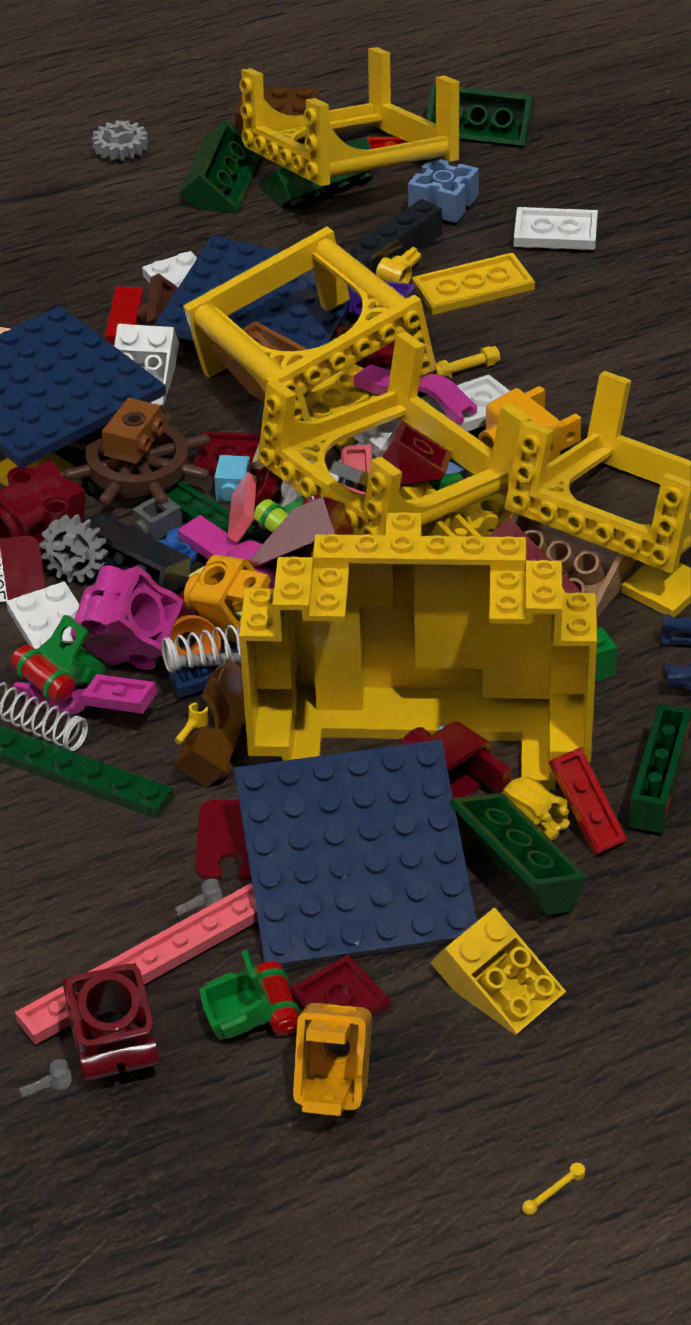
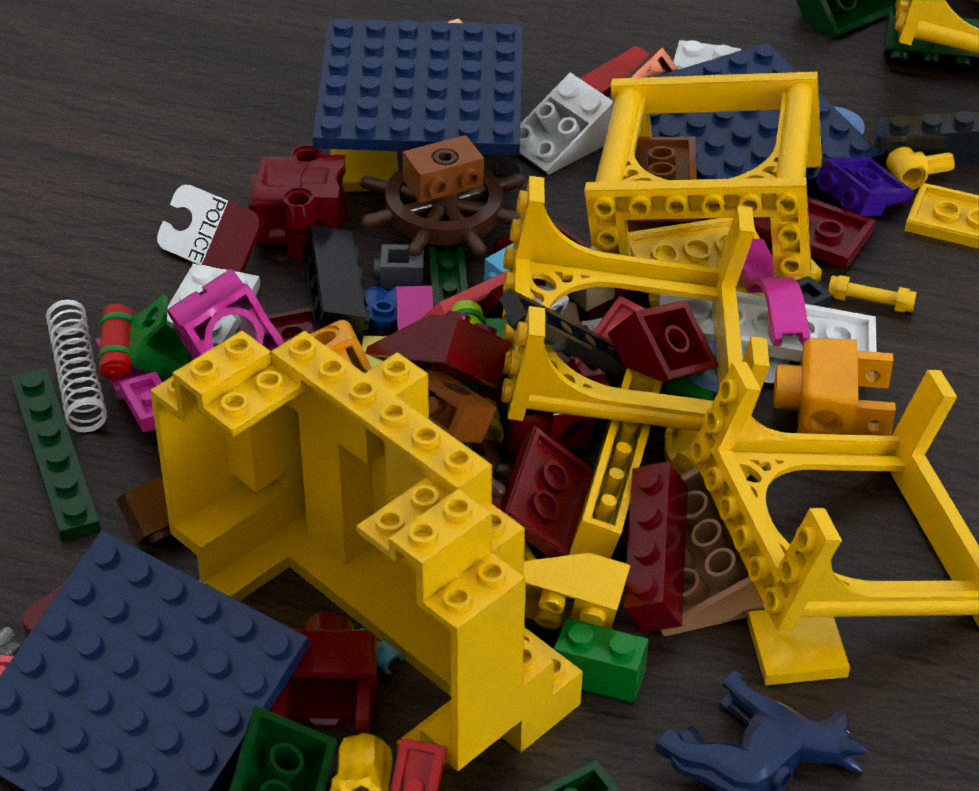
camera: 40 degrees right, 0 degrees up
(73, 548) = (285, 248): light grey gear -> none

